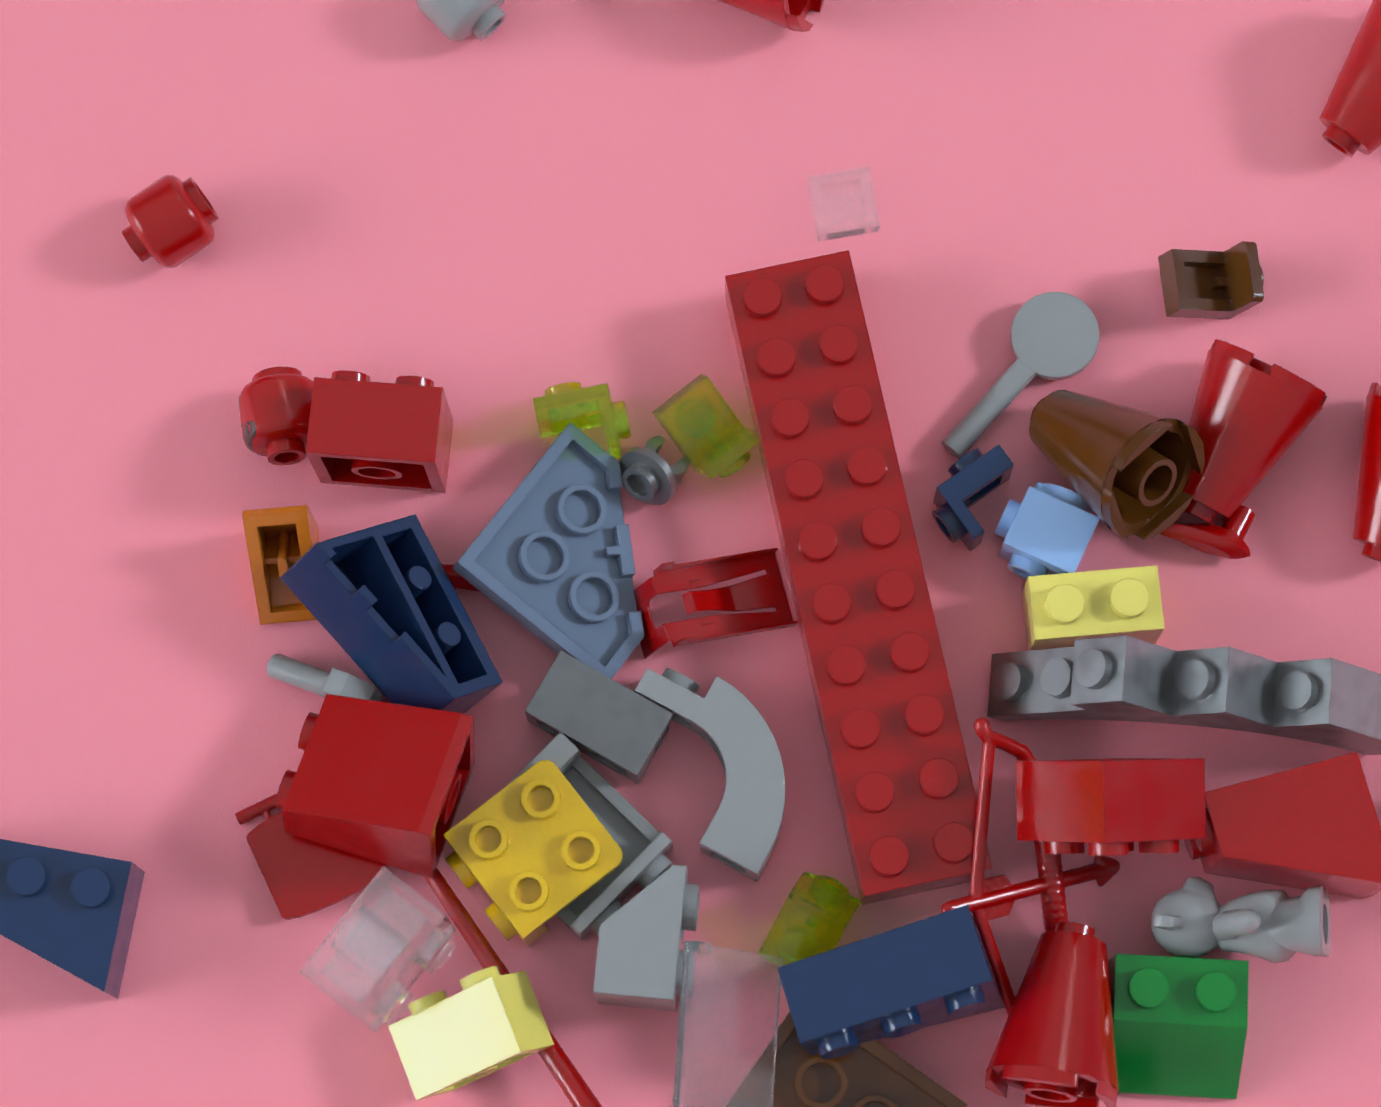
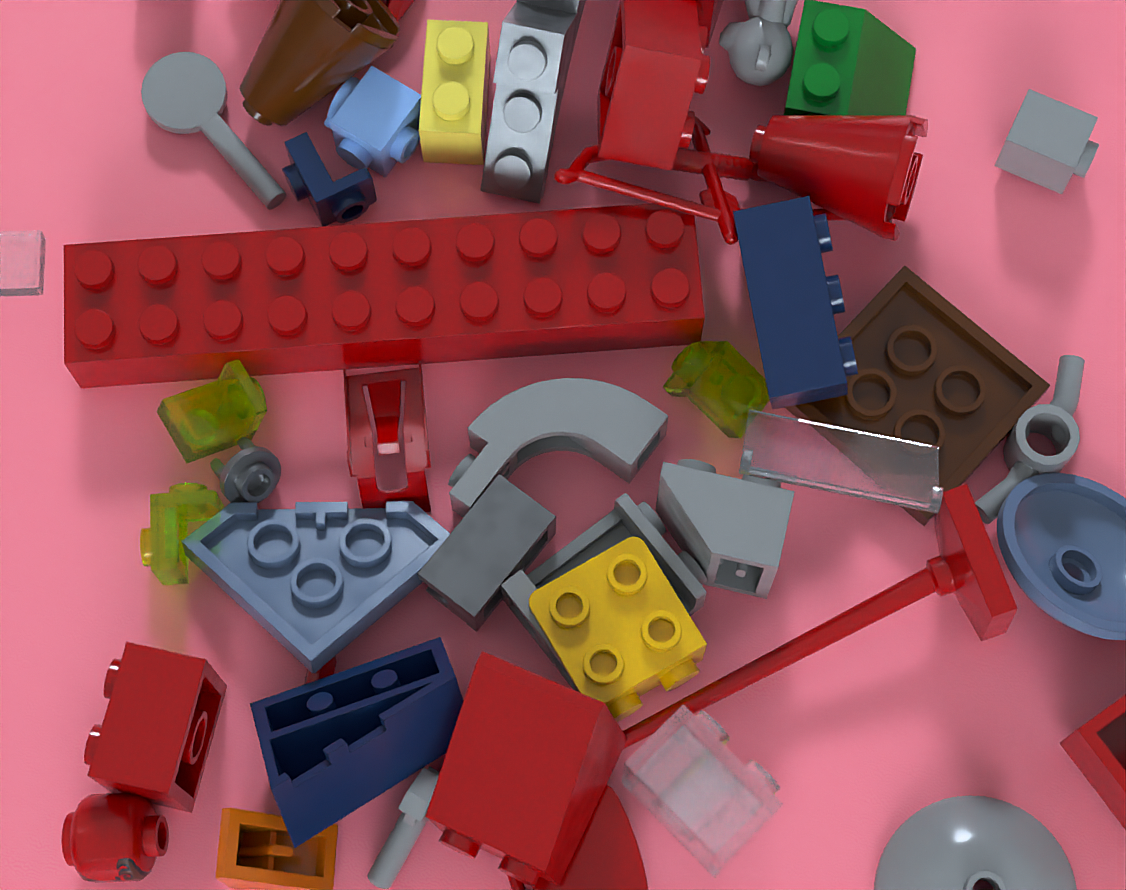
camera: 85 degrees left, 5 degrees down
(469, 1033) = (793, 711): light yellow brick -> none

